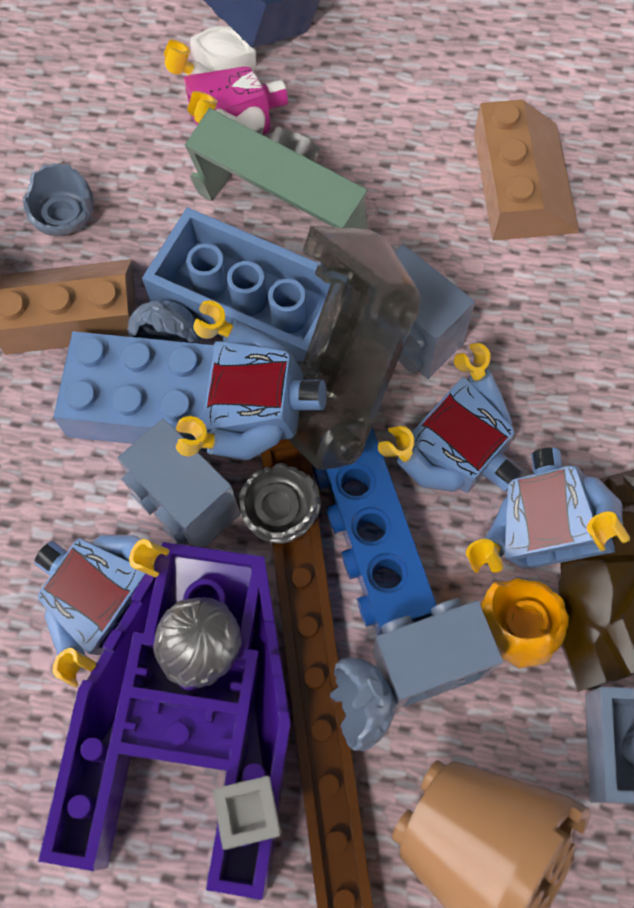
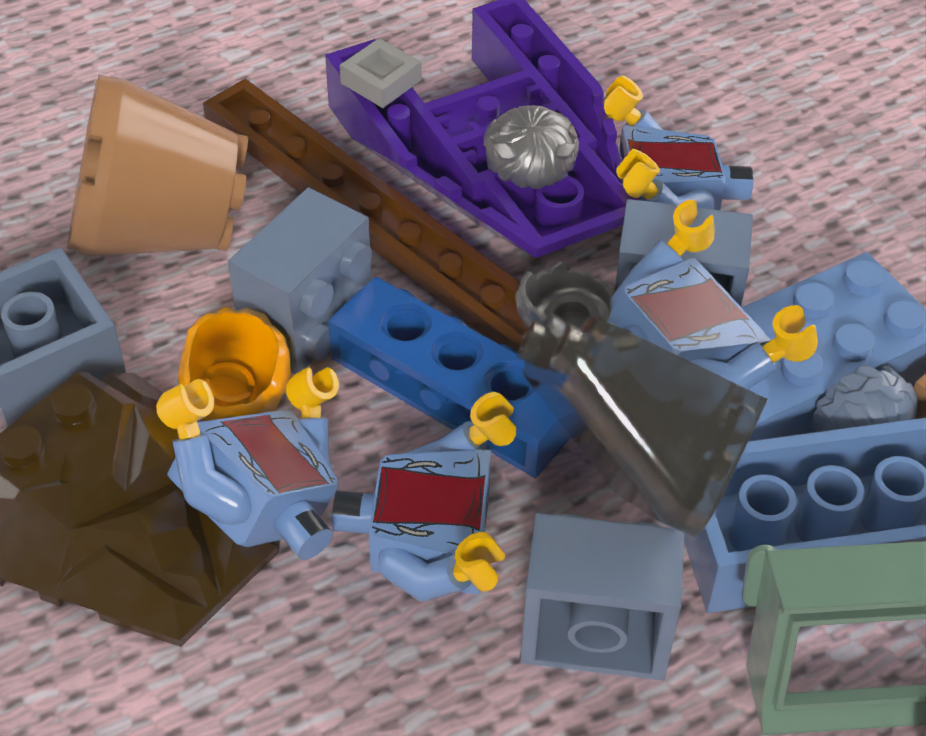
camera: 140 degrees right, 20 degrees down
(365, 700) = (353, 193): sand blue hair -> none

